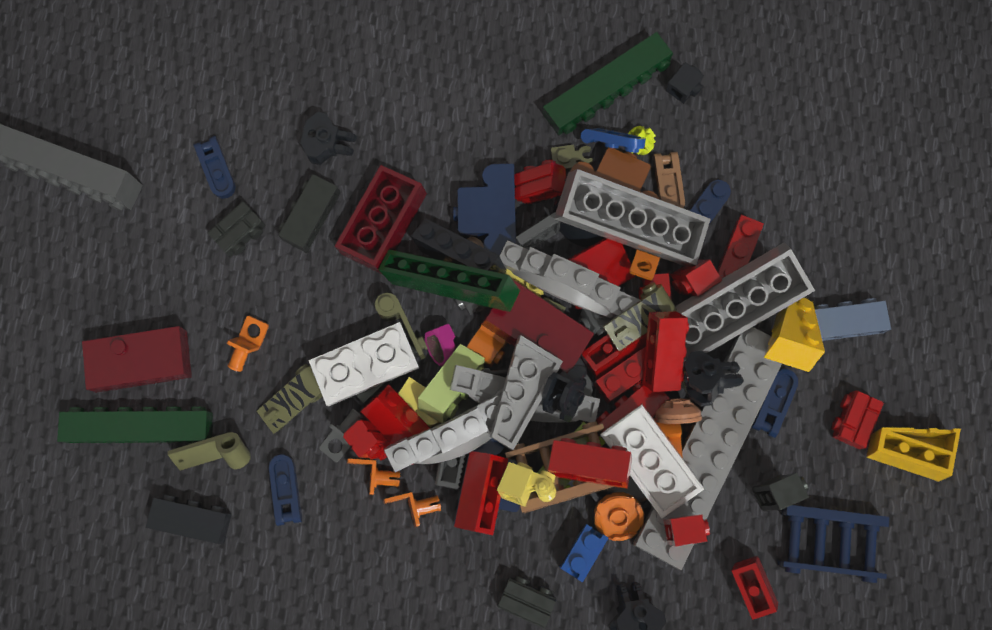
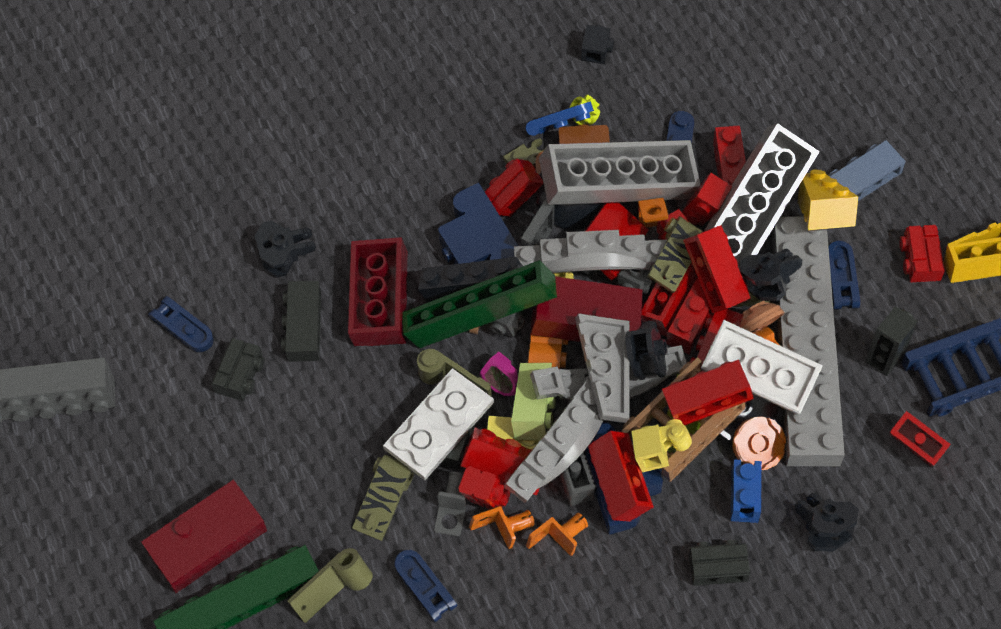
camera: 30 degrees left, 15 degrees down
(245, 343) = (306, 470): orange bracket -> none
(607, 84) = (524, 78): dark green brick -> none
(669, 180) = (630, 130): medium nougat plate -> none
(686, 530) = (826, 407): red brick -> none

